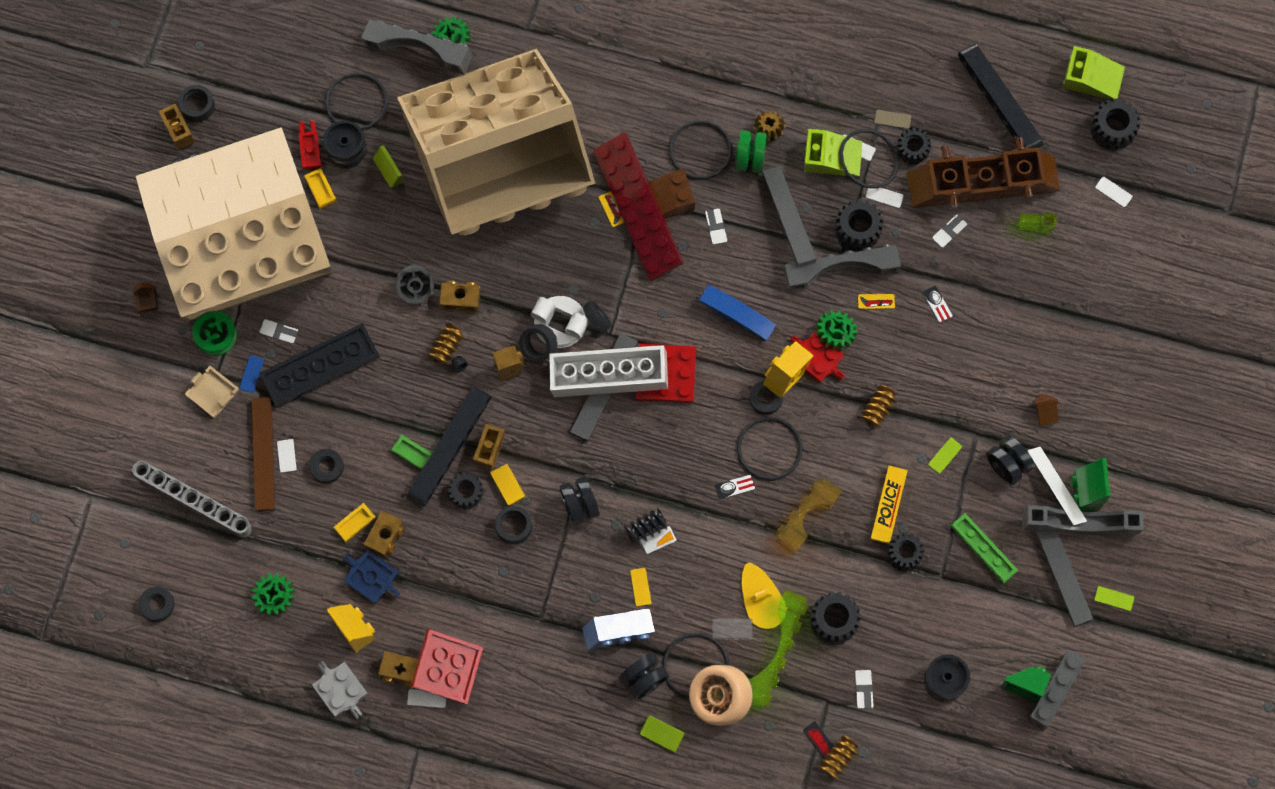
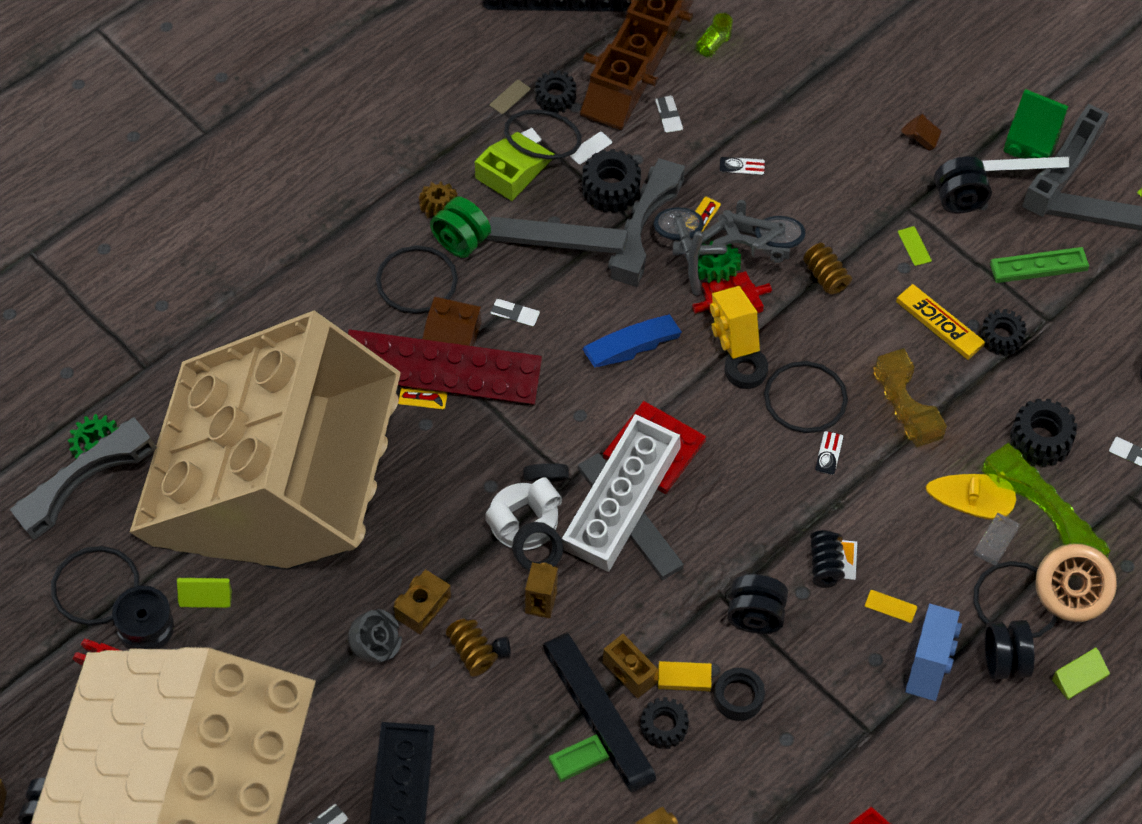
camera: 60 degrees left, 15 degrees down
(853, 291) = (773, 234): none -> dark grey piece

